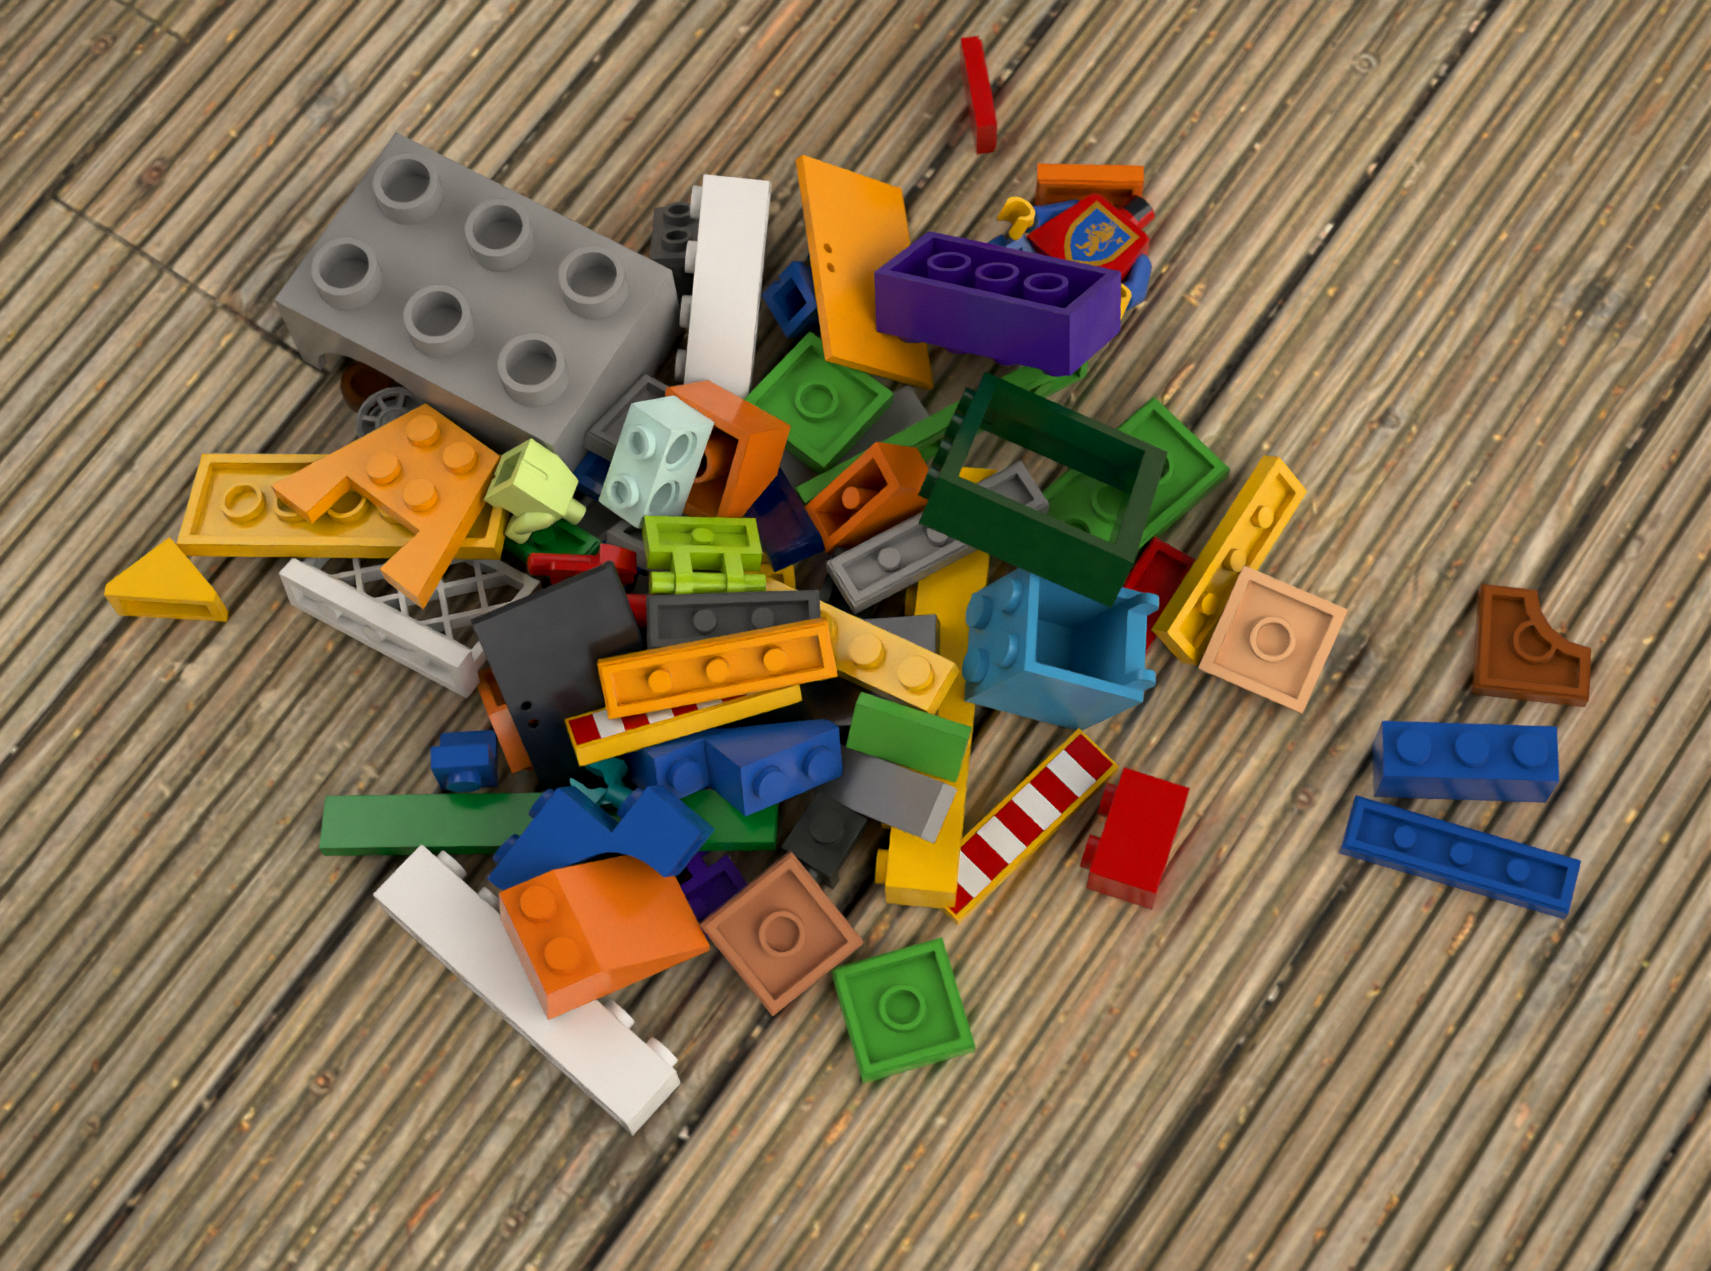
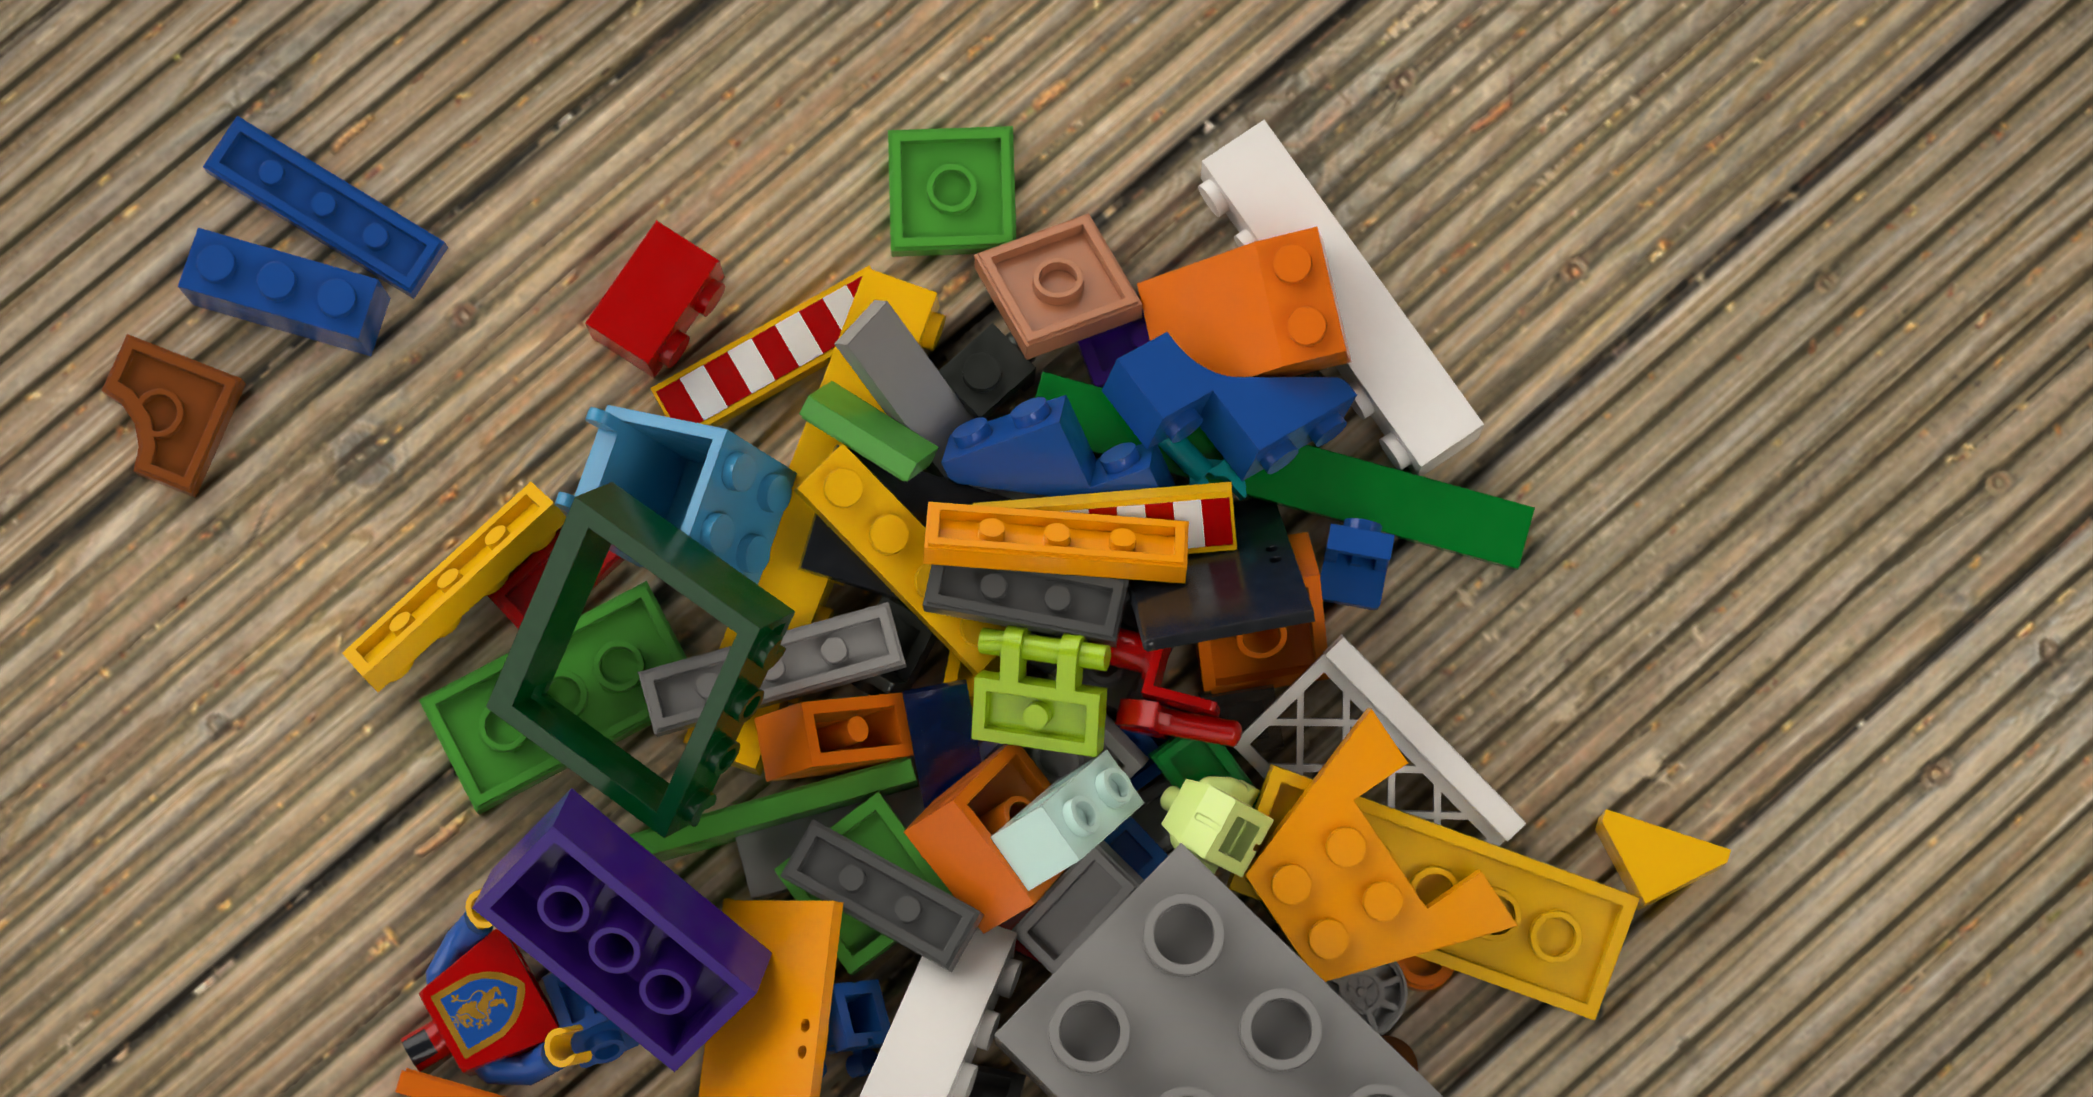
camera: 165 degrees left, 10 degrees up
(796, 382) = (882, 895): none -> dark grey tile
(1273, 639) = (440, 477): light nougat hinge -> none

